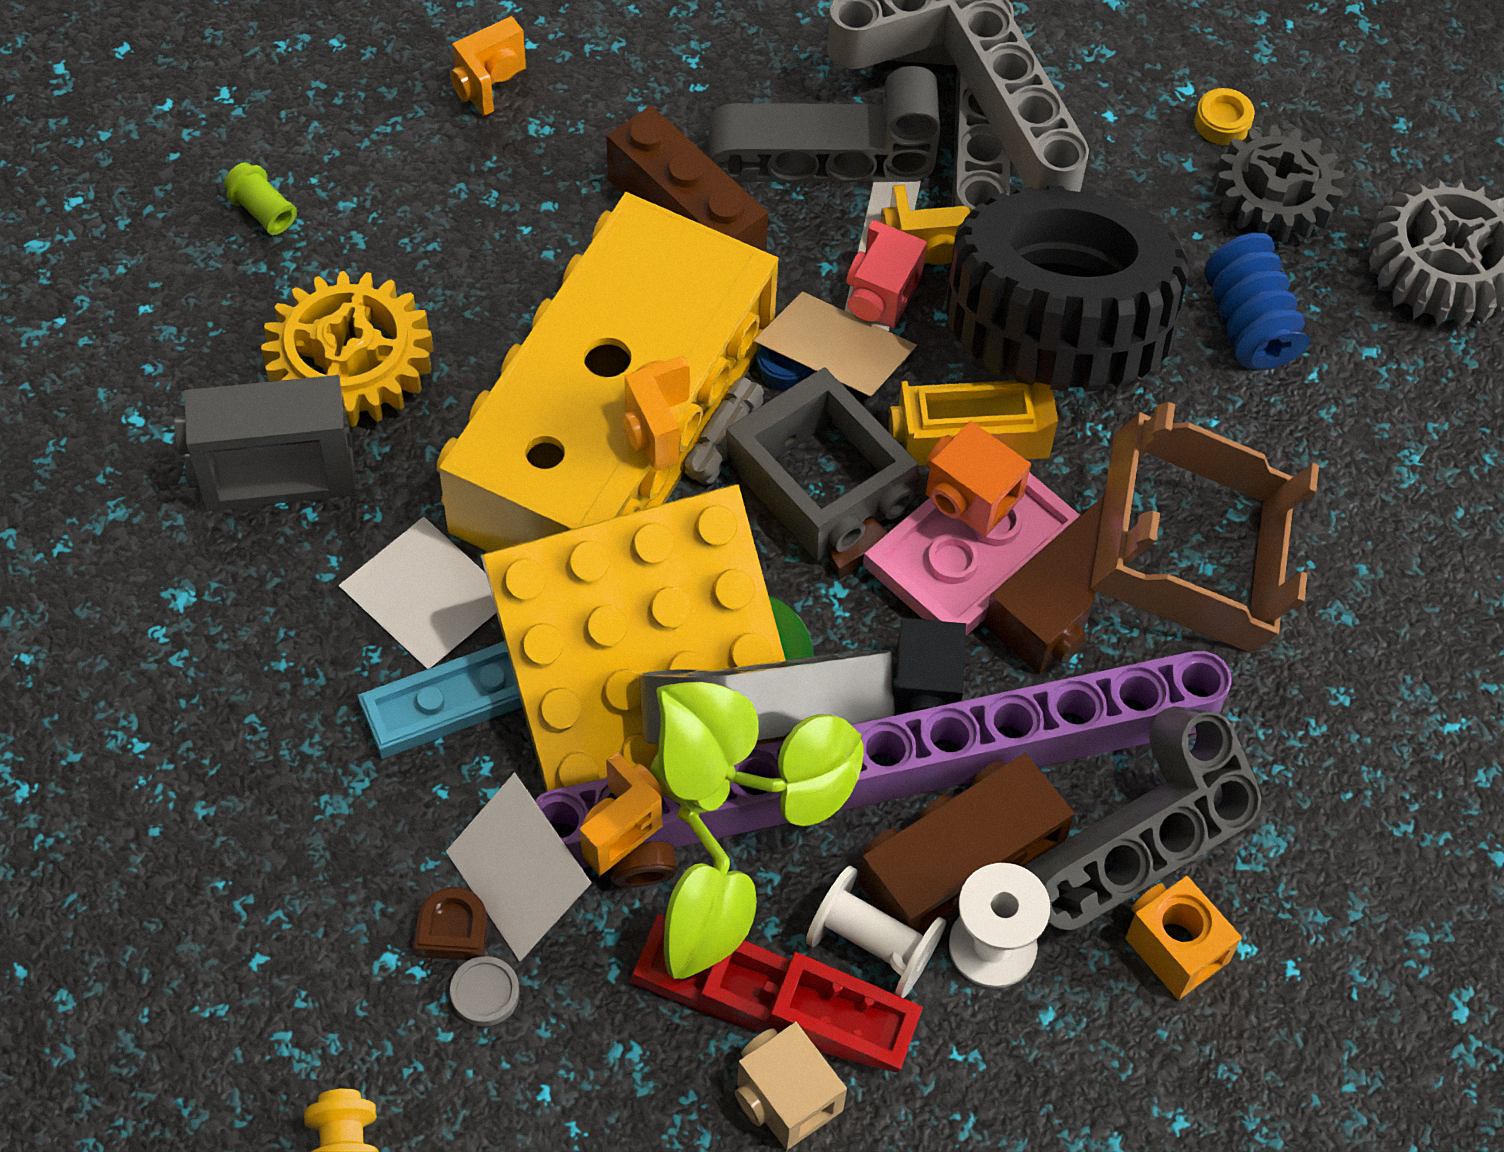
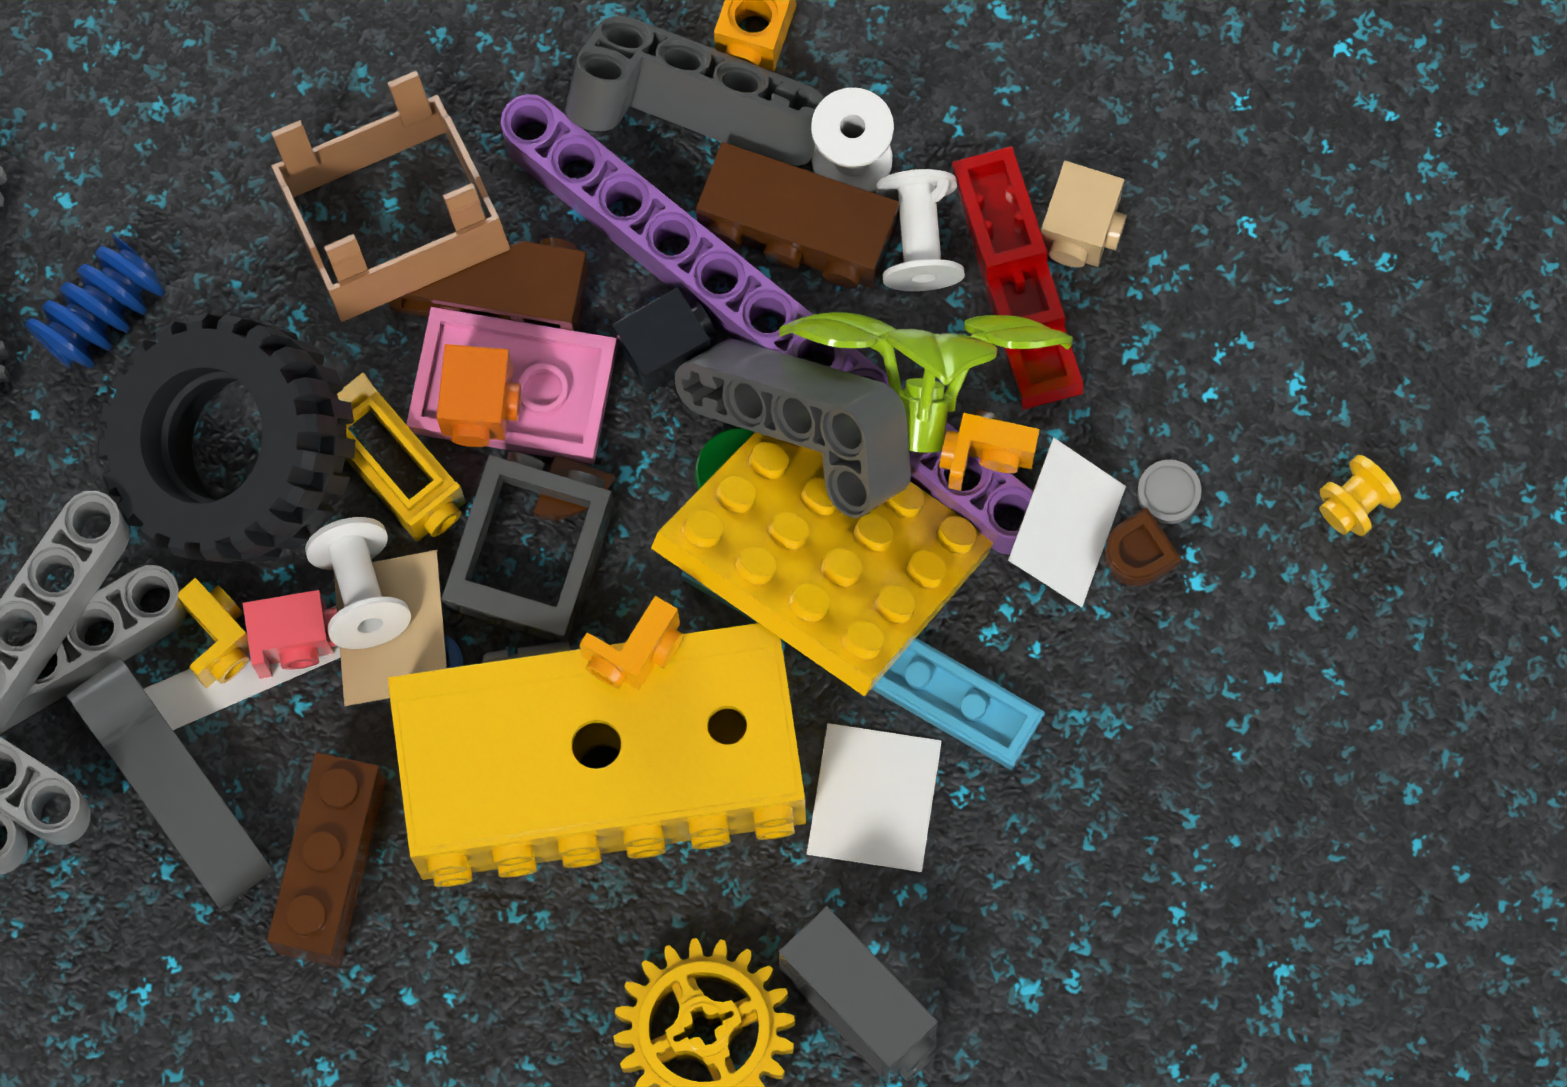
camera: 120 degrees left, 15 degrees up
(884, 328) = (366, 615): none -> white piece

